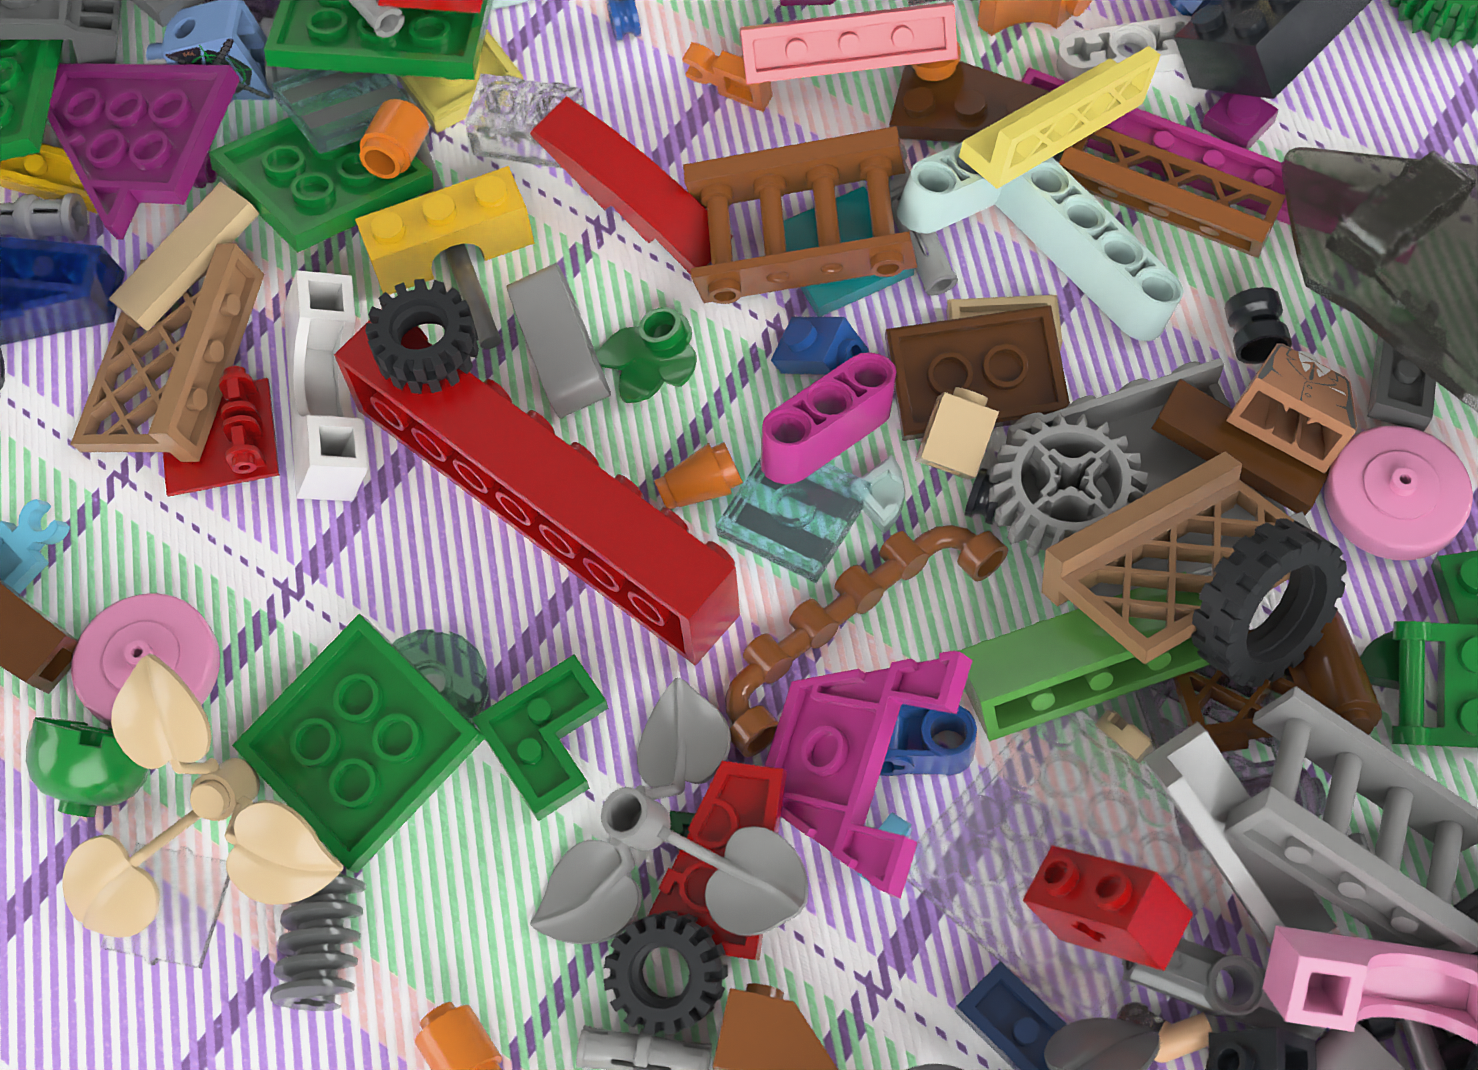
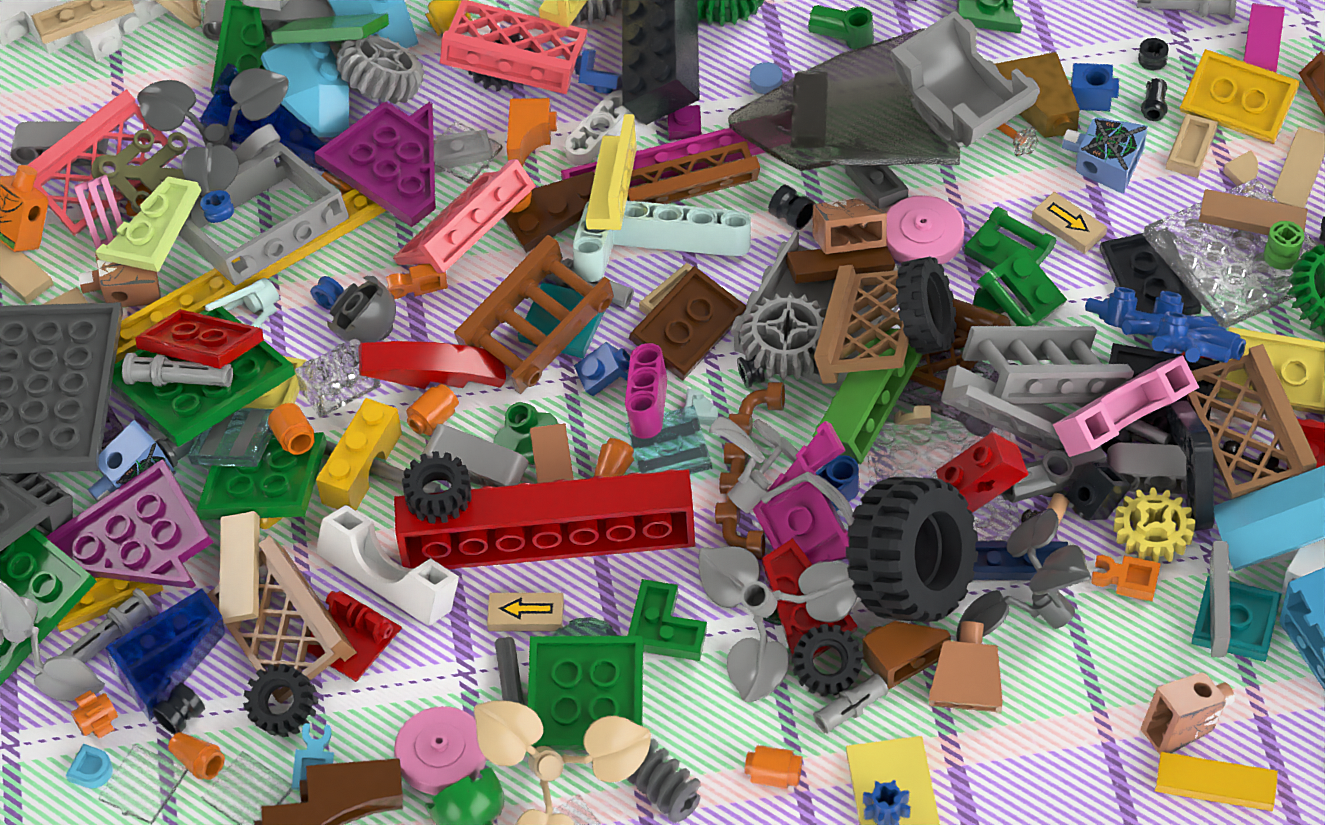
camera: 45 degrees left, 10 degrees down
(39, 435) = (263, 688): none -> black tyre
(318, 634) = (509, 670): none -> dark grey axle
(421, 575) = (525, 611): none -> tan tile
(579, 240) = (431, 409): none -> orange brick
(623, 69) = (364, 312): none -> dark grey cylinder
(637, 415) = (551, 453): none -> nougat tile
(810, 590) = (753, 486): none -> light grey plant
(873, 880) = (912, 549): none -> black tyre
(957, 433) = (712, 352): tan brick -> none
(1401, 134) = (765, 77): none -> medium blue tile

